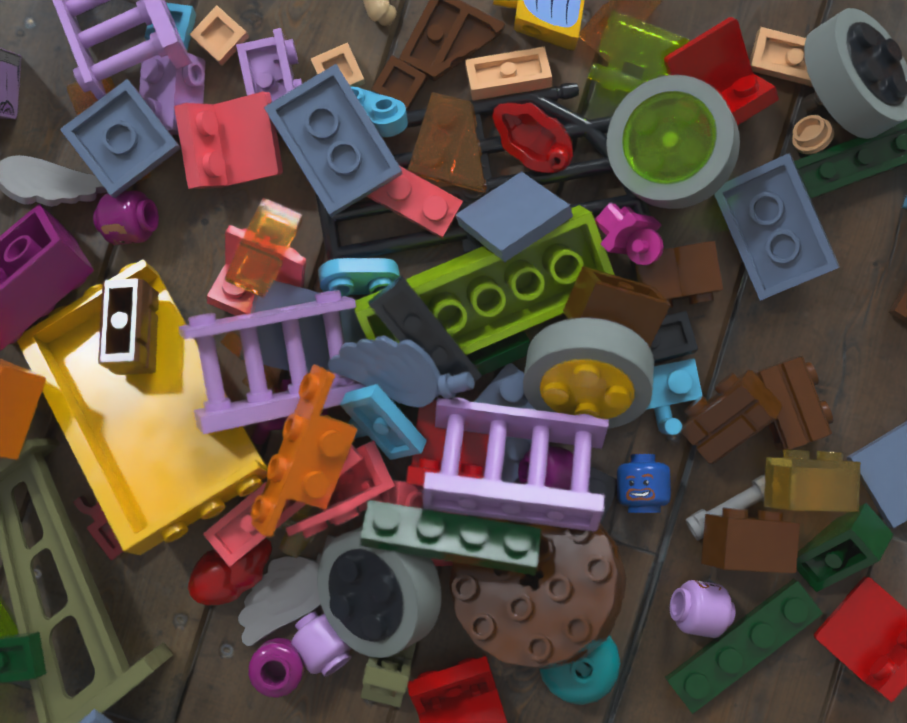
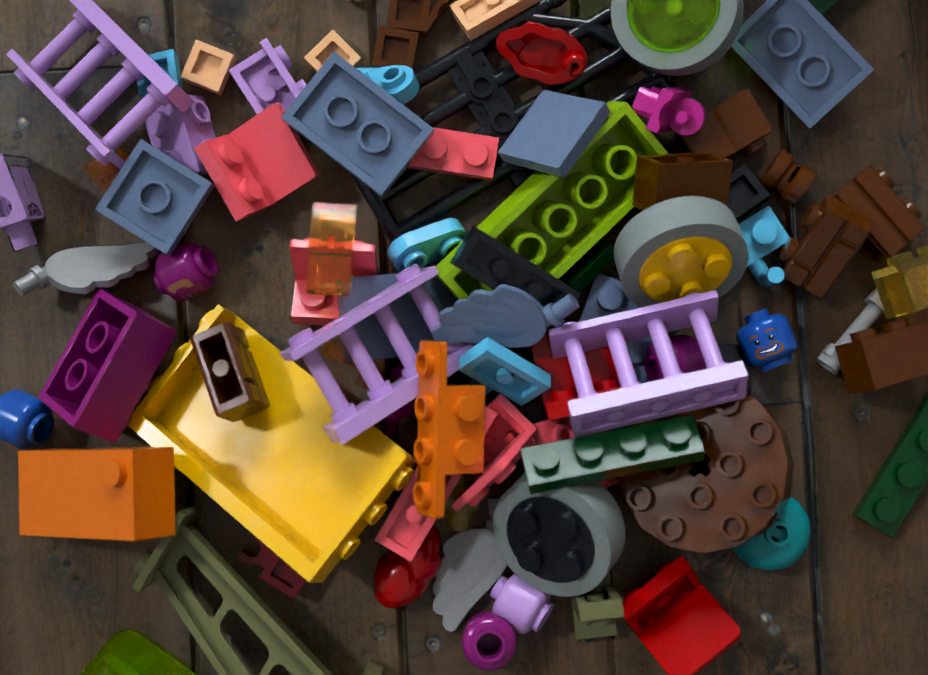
camera: 20 degrees left, 0 degrees up
(449, 144) = (466, 89): clear orange wing -> none
(702, 608) = (864, 436): lavender head -> none
(716, 330) = (780, 170): none -> reddish brown wheel

